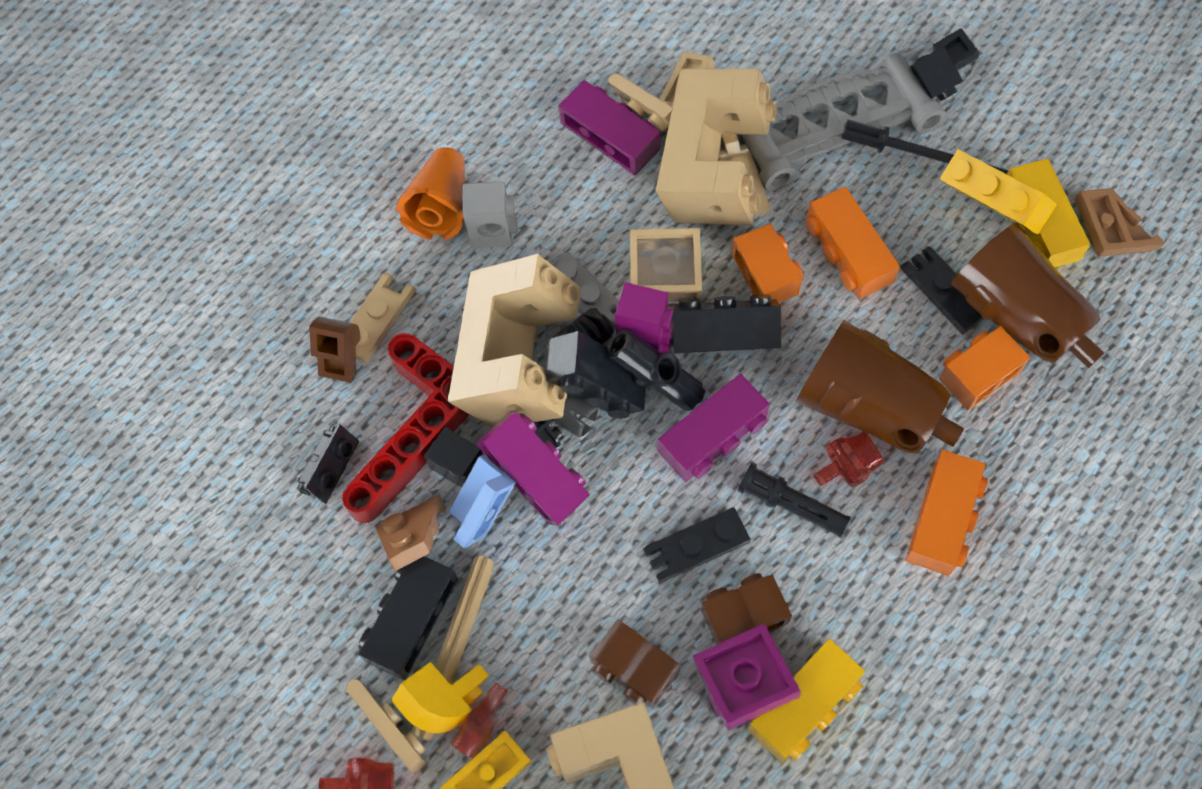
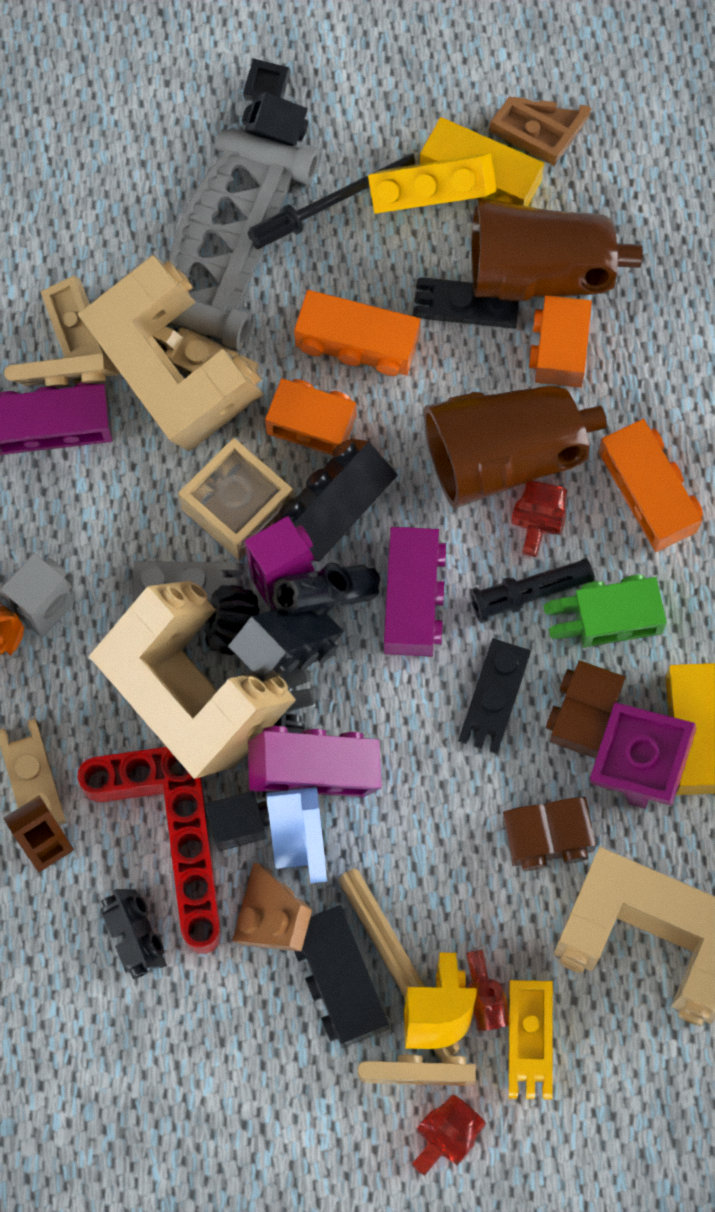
camera: 50 degrees left, 5 degrees up
(829, 566) = (611, 611): none -> bright green hinge

